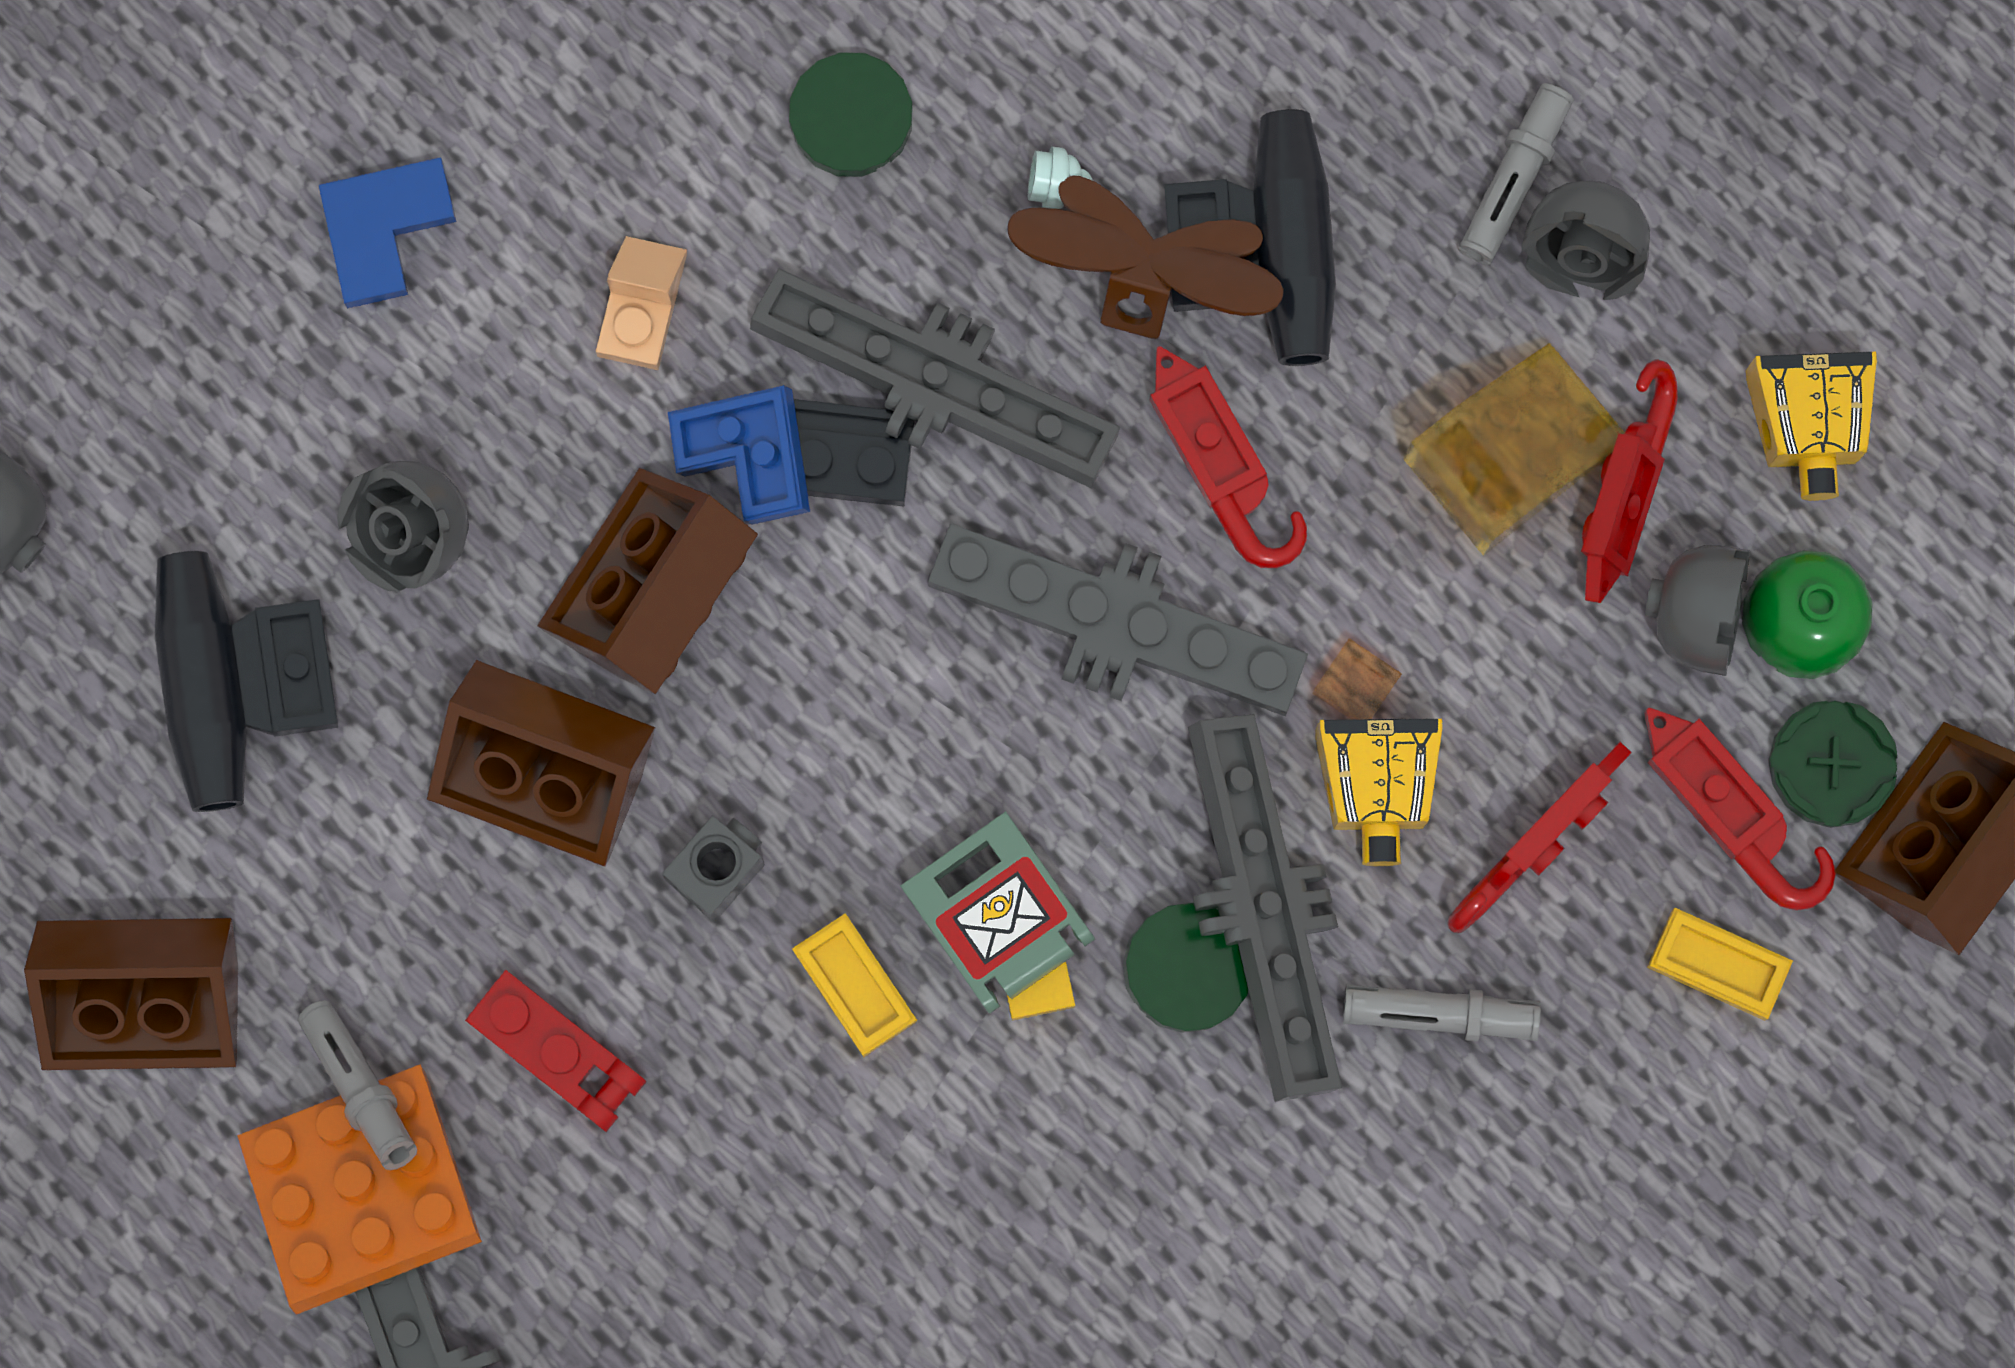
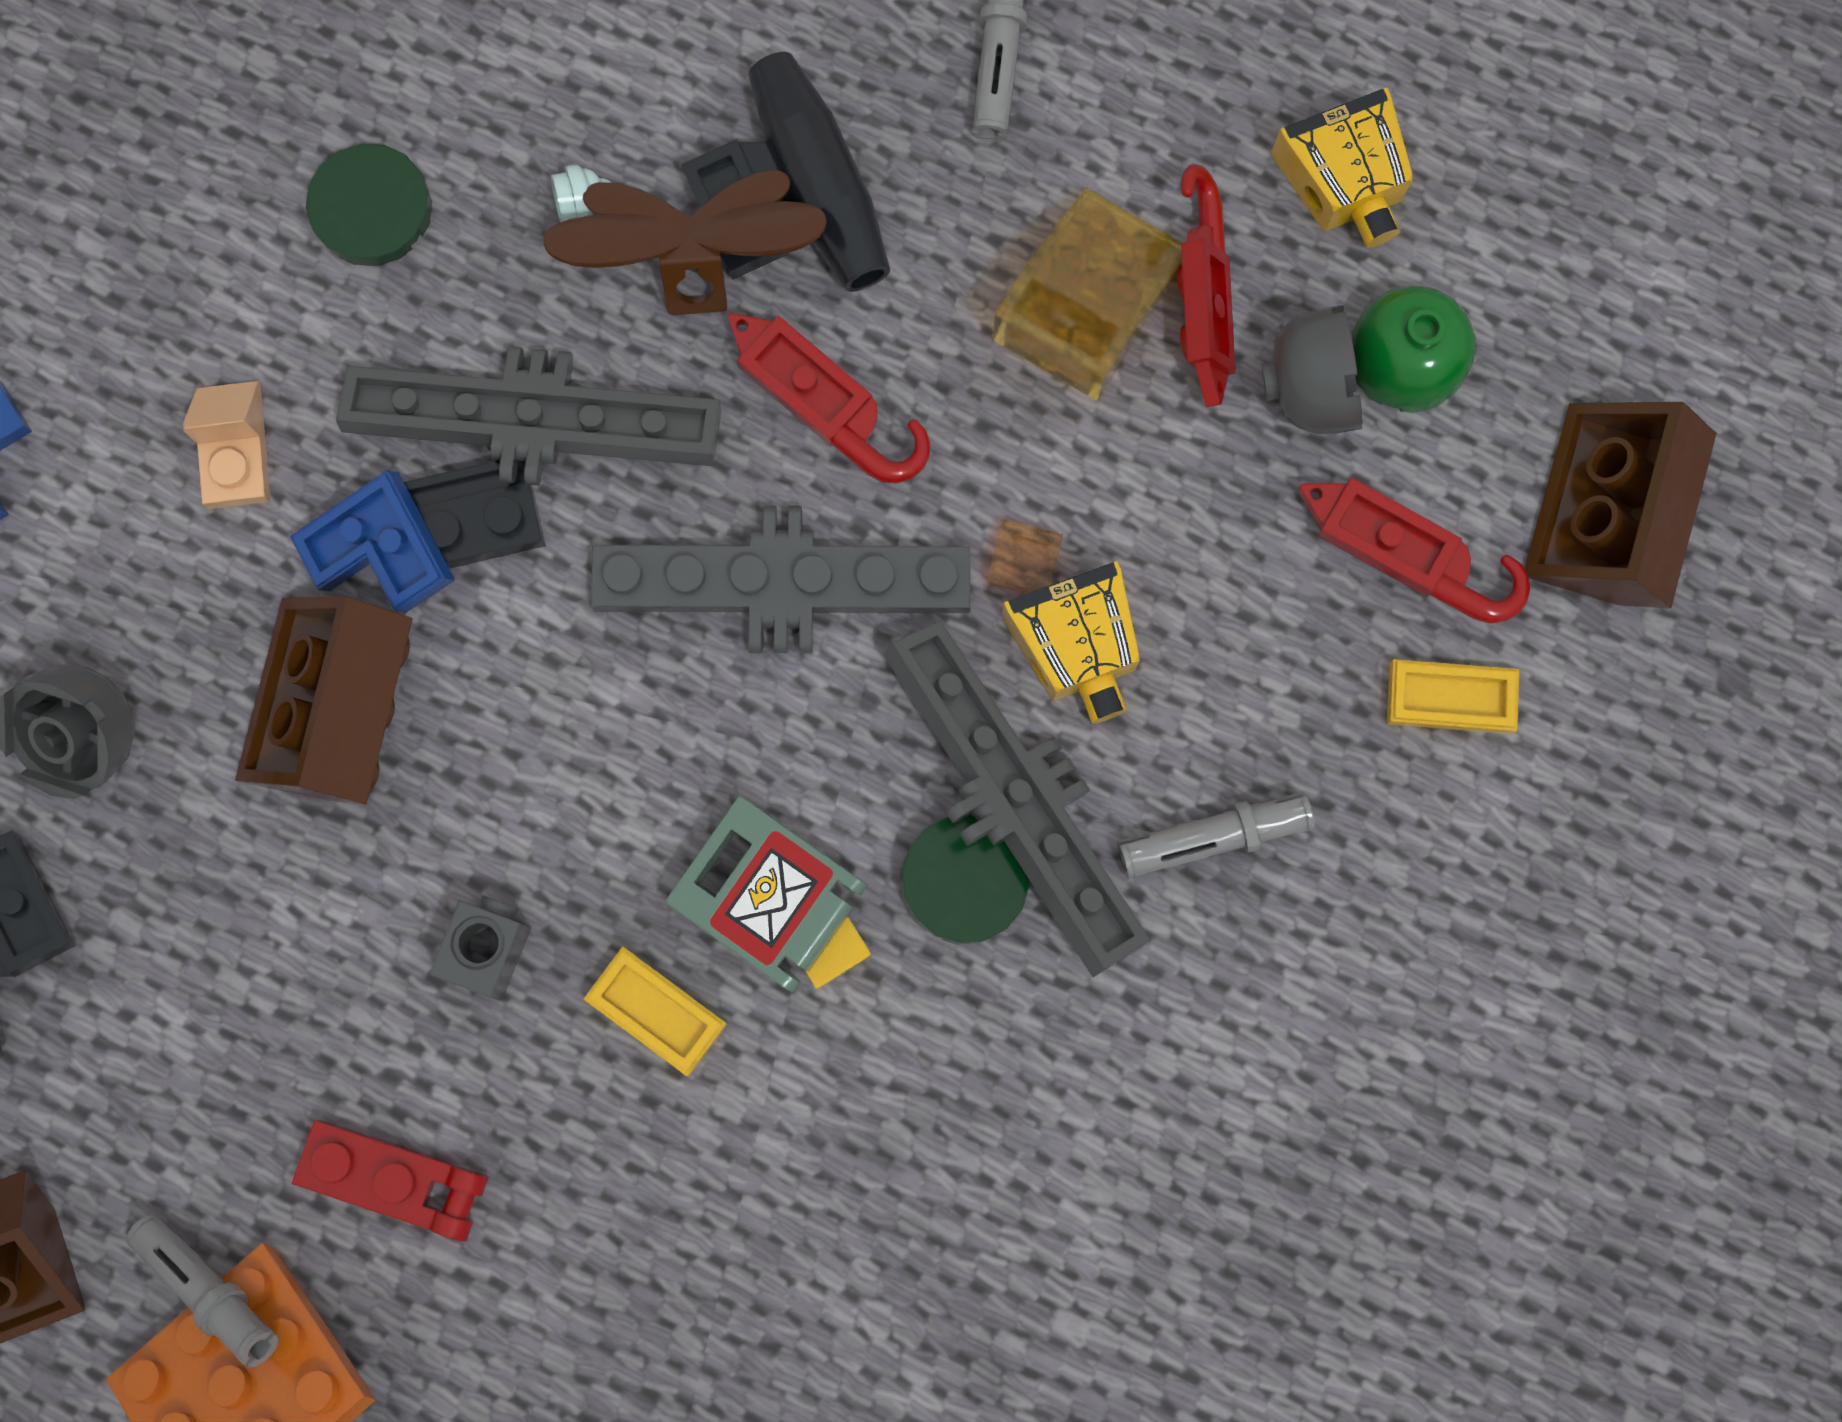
camera: 20 degrees left, 0 degrees up
(539, 762) = (276, 909): reddish brown slope -> none
(1539, 844) = (1248, 646): red plate -> none
(1588, 238) = (1091, 73): dark grey cylinder -> none
(1833, 763) = (1485, 476): dark green tile -> none

